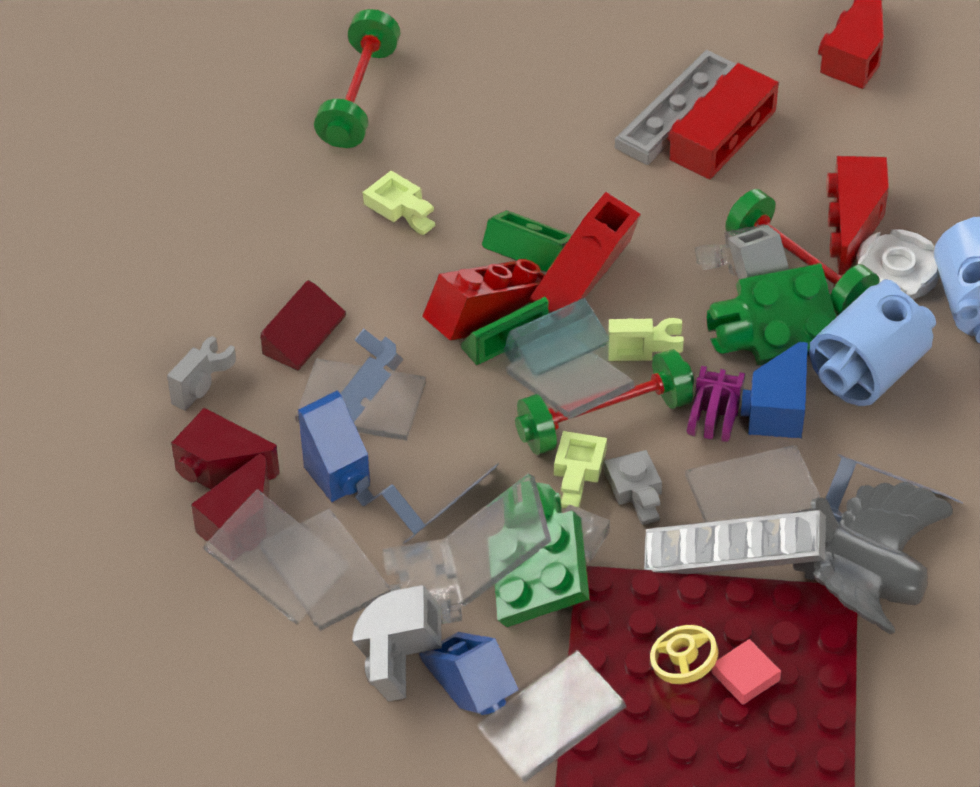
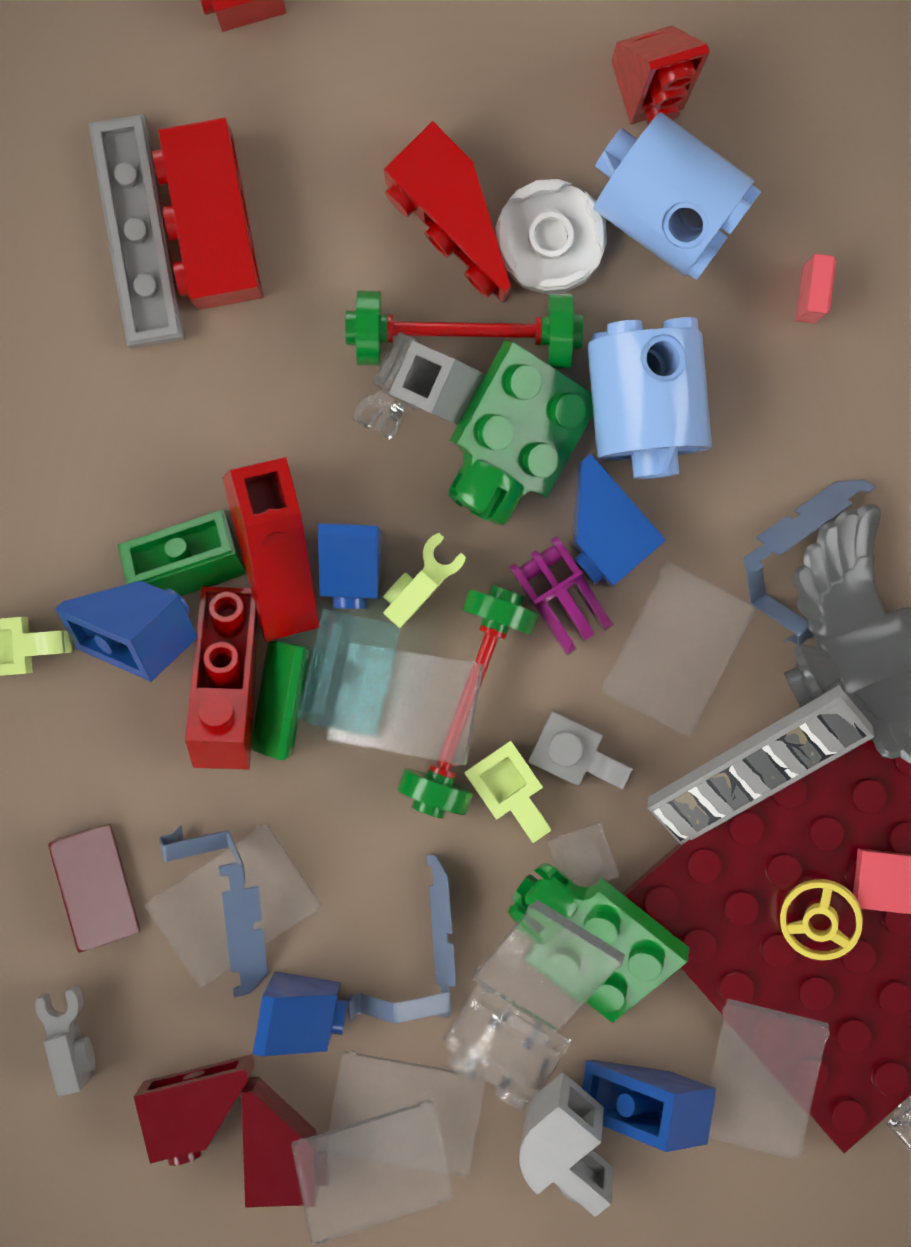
camera: 45 degrees left, 40 degrees up
(471, 229) = (130, 627): none -> blue slope
(622, 283) = (349, 564): none -> blue slope

